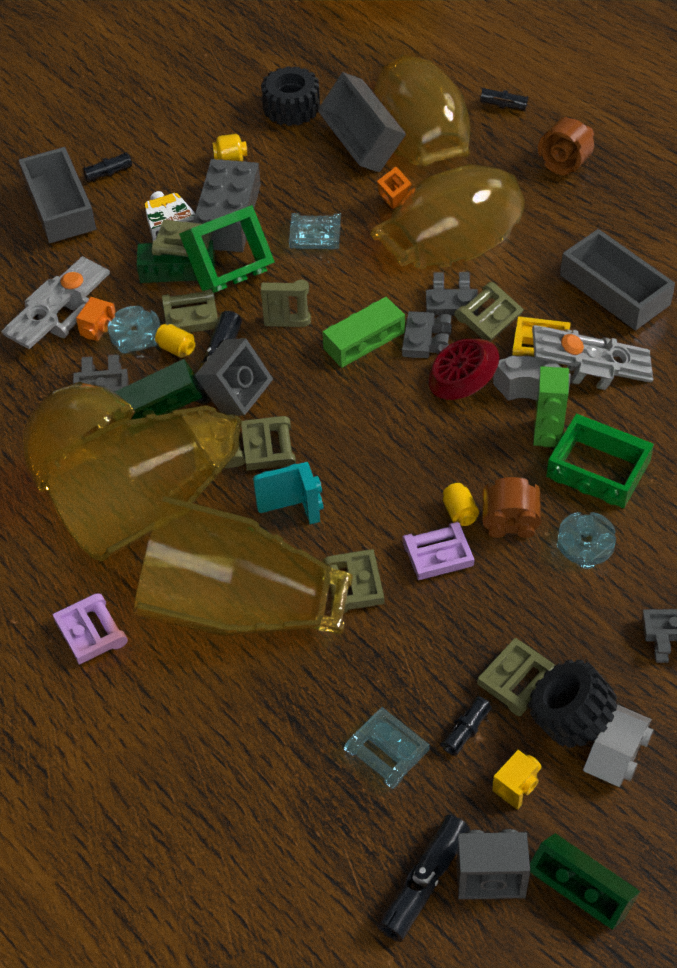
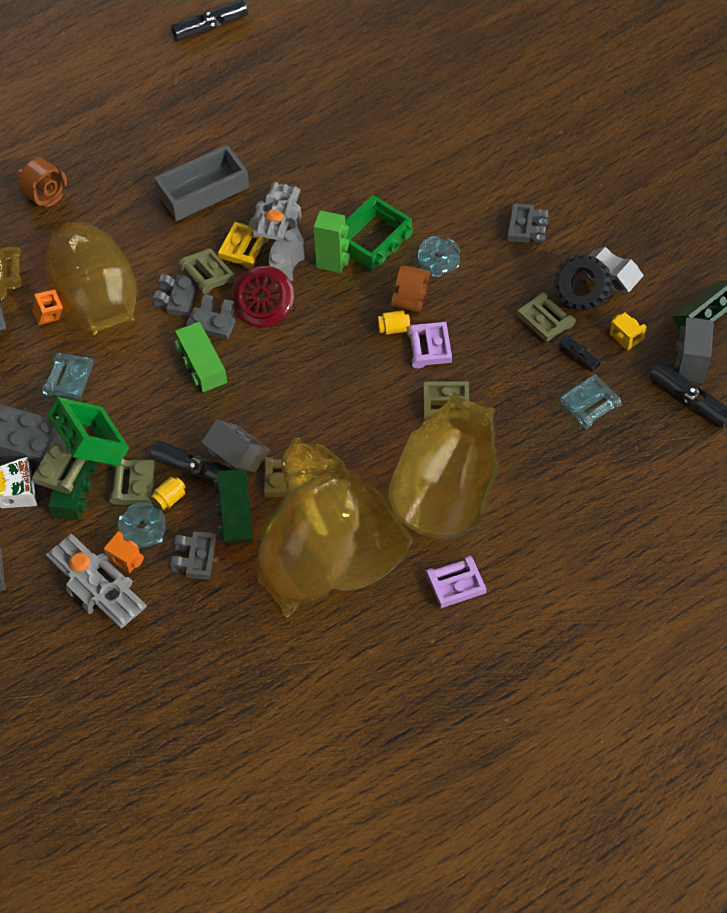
camera: 80 degrees left, 5 degrees up
(258, 443) = (284, 440): olive plate -> none
(277, 306) = (160, 401): olive plate -> none
(289, 487) = (364, 413): teal bracket -> none

